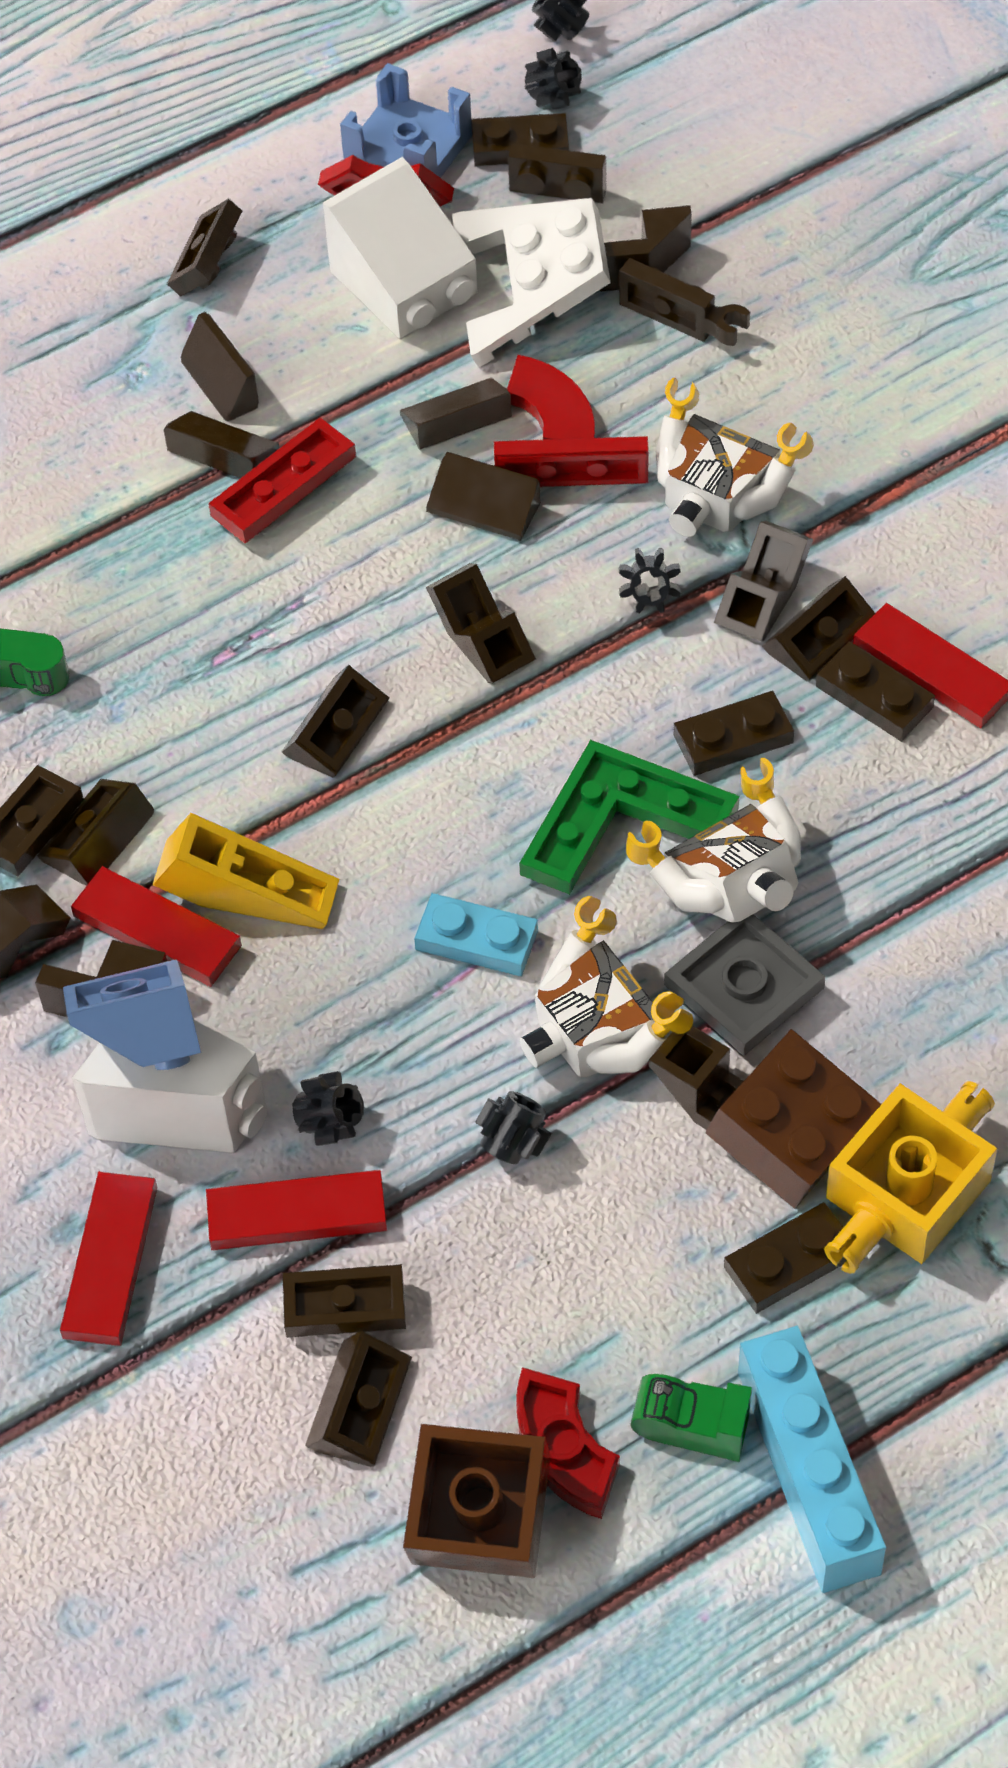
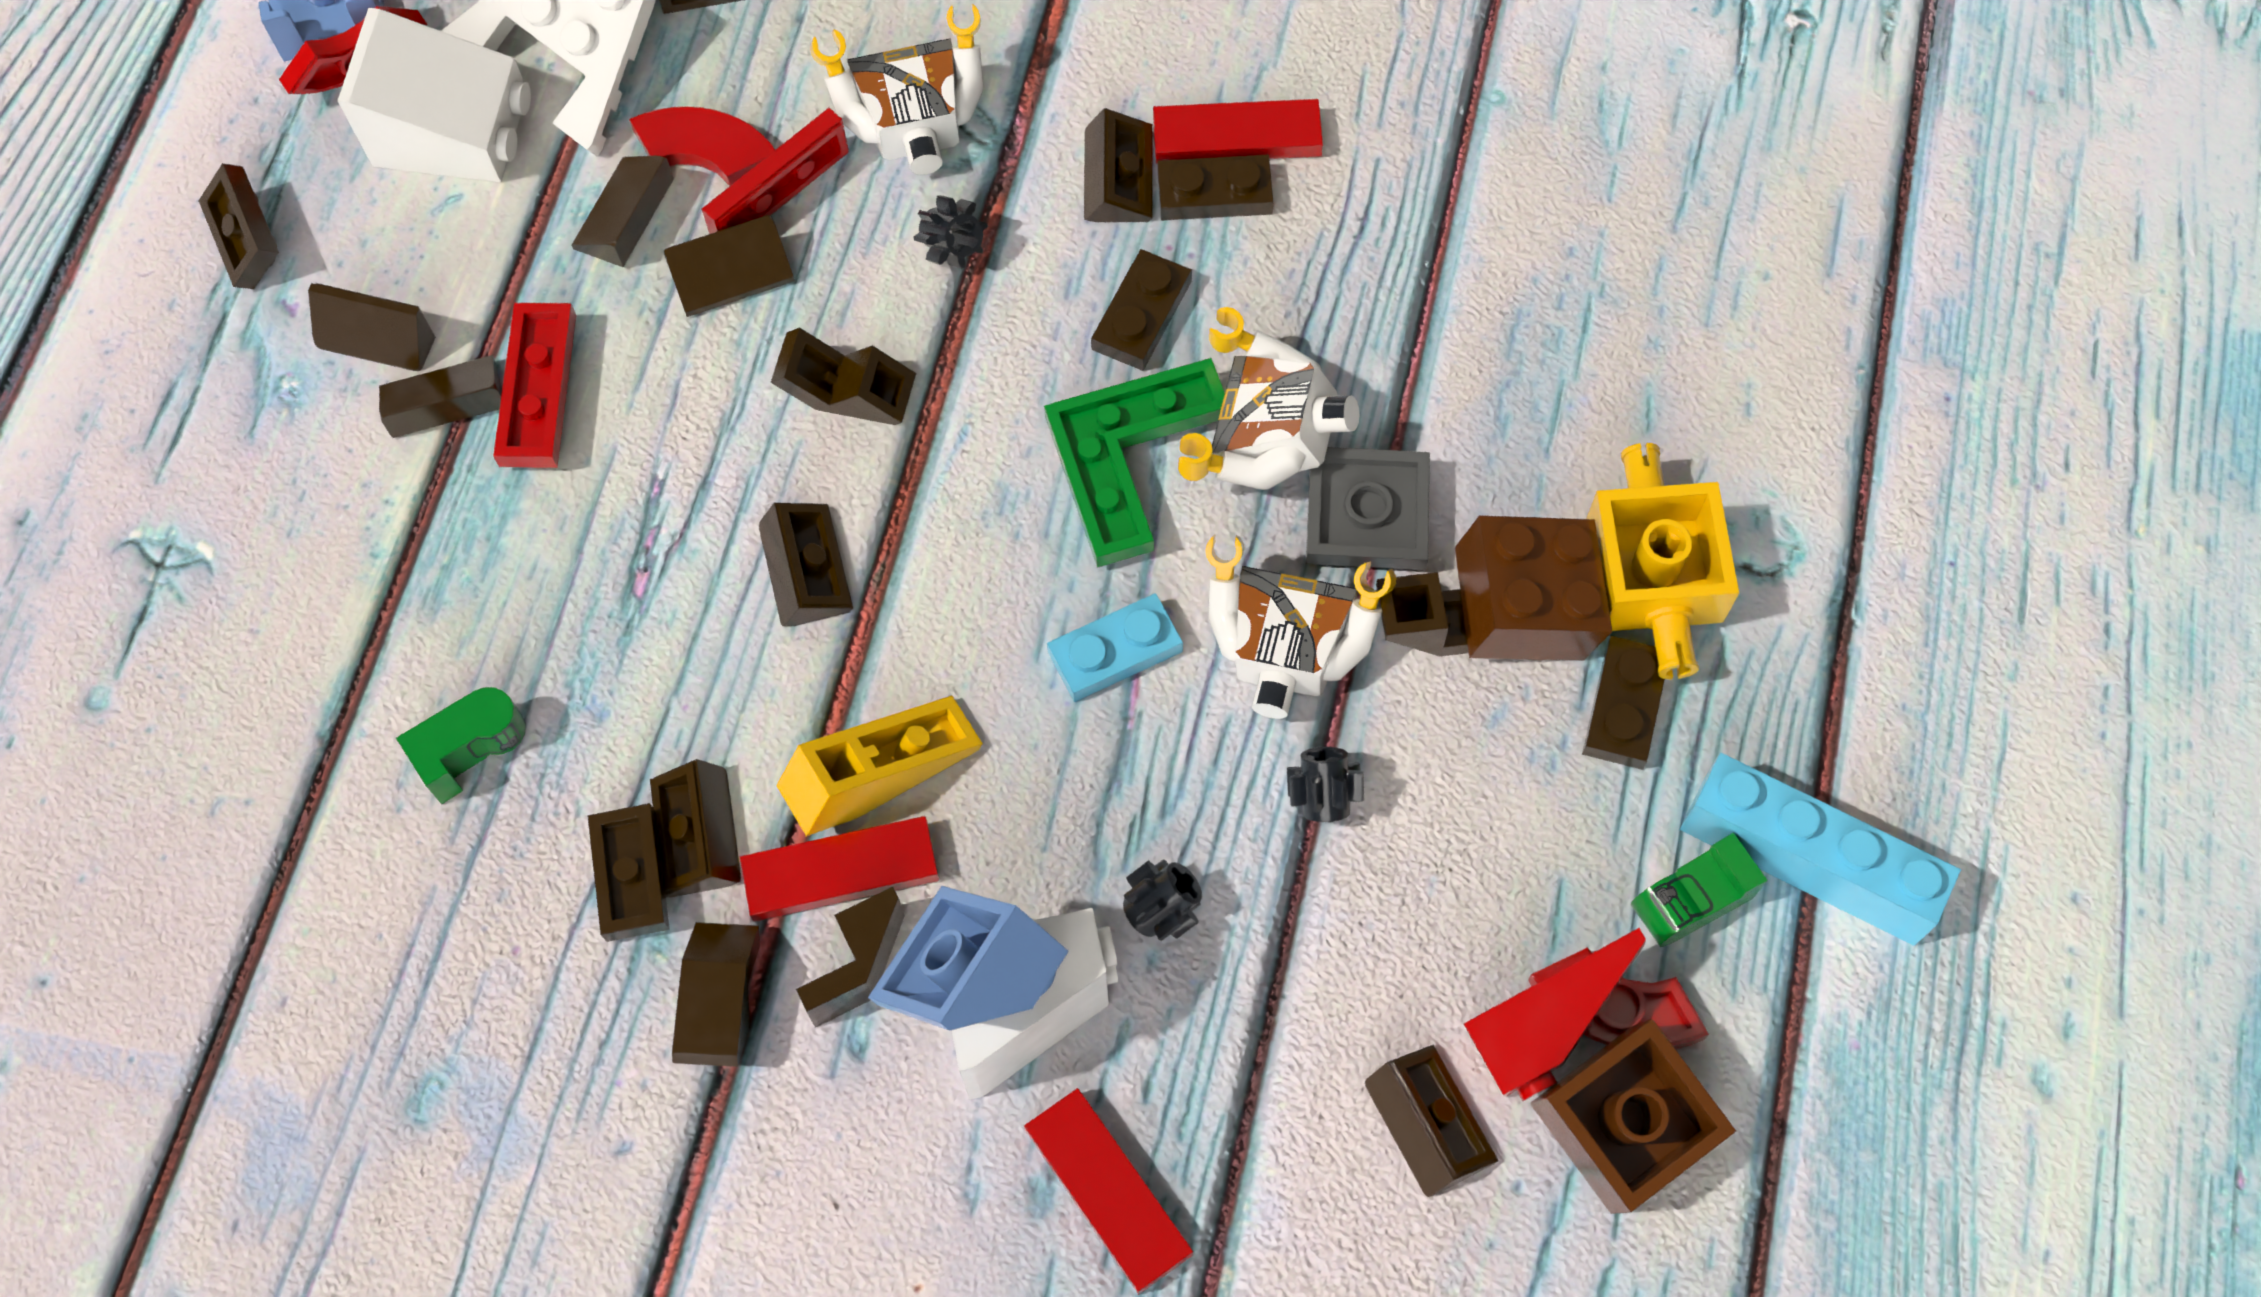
camera: 45 degrees left, 10 degrees up
(295, 1210) = (1216, 1008): red tile -> none
(343, 1300) = (1340, 1049): dark brown plate -> none
(501, 1391) = (1544, 1024): none -> red slope
(766, 583) = (1037, 162): slope -> none

